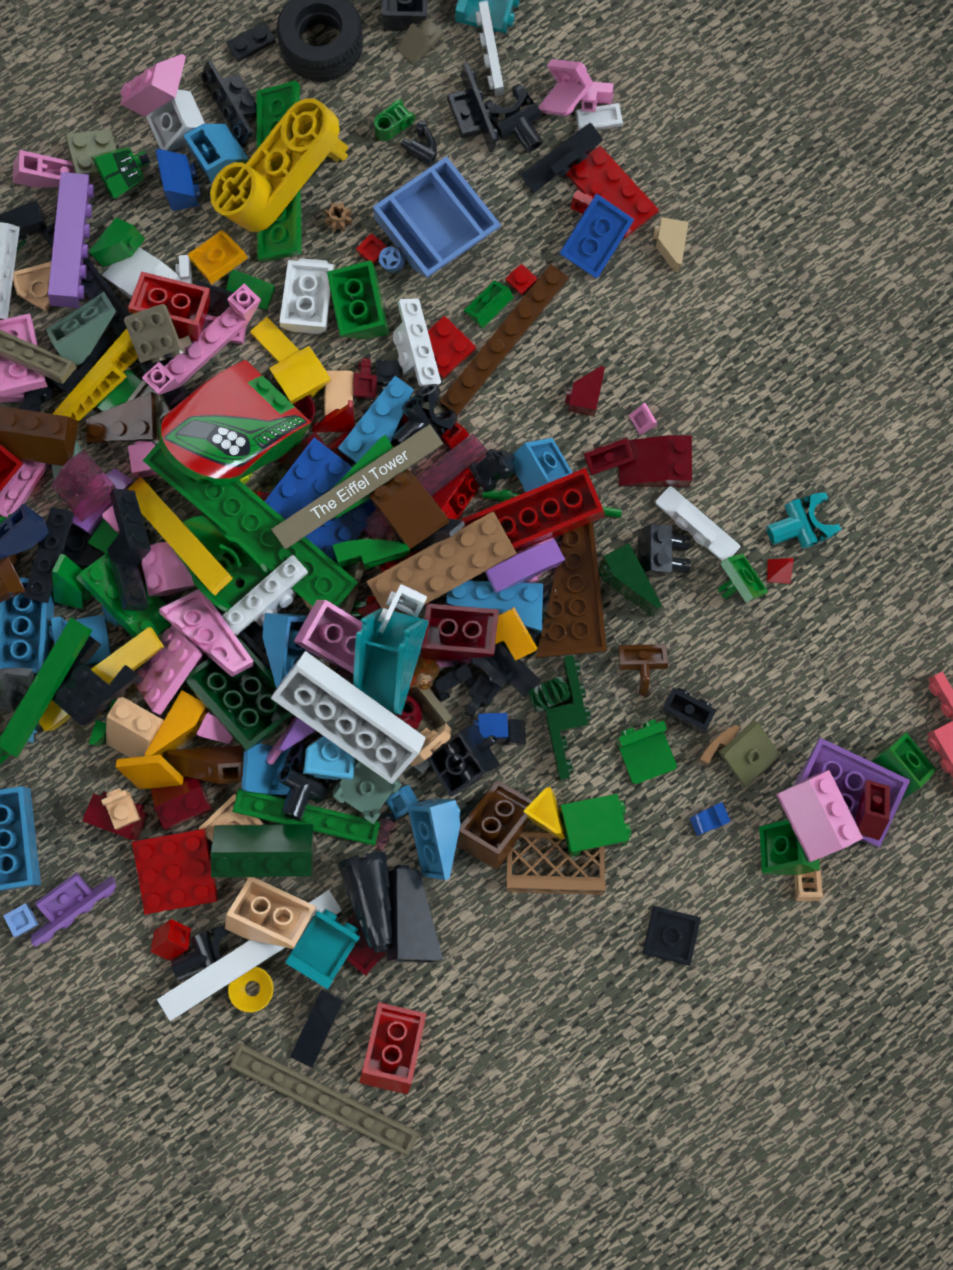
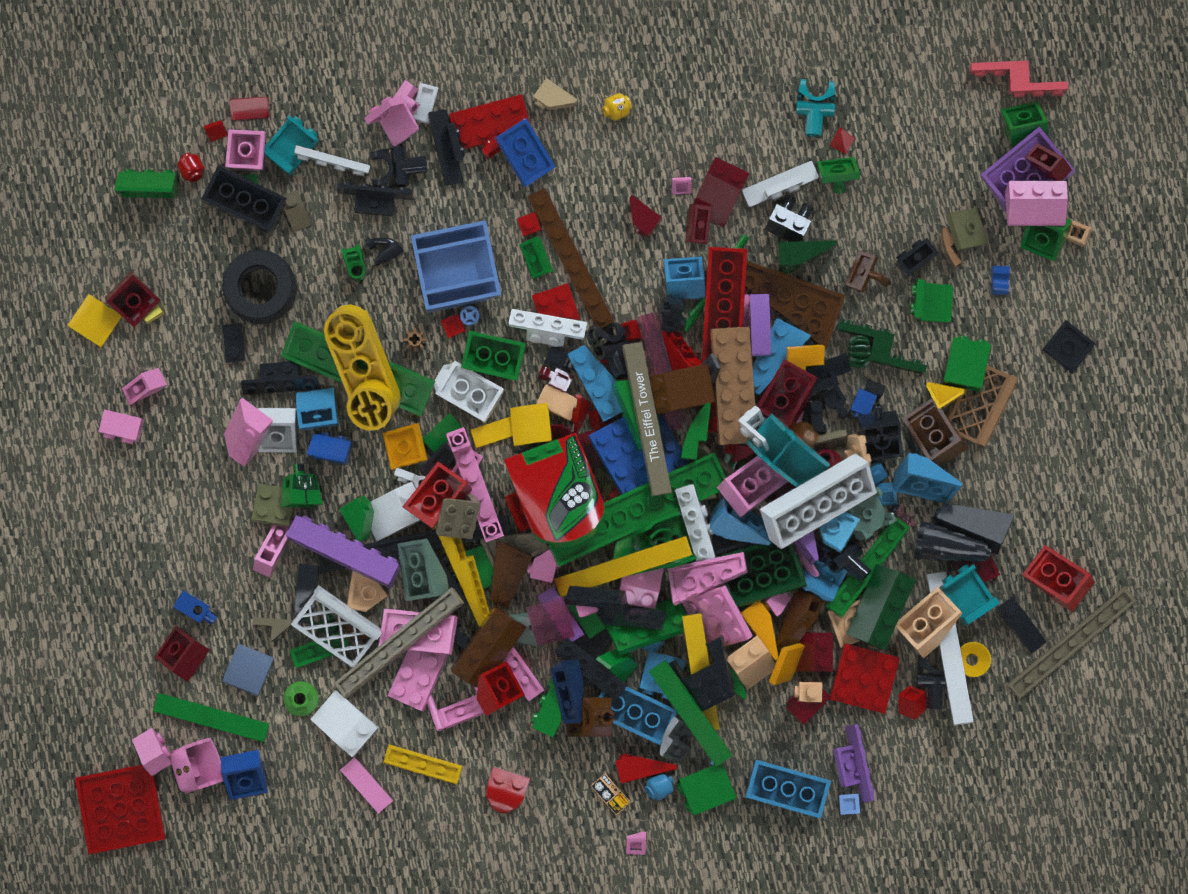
camera: 60 degrees left, 5 degrees up
(418, 777) = (878, 472): none -> dark azure plate
(694, 311) = (616, 106): none -> yellow head

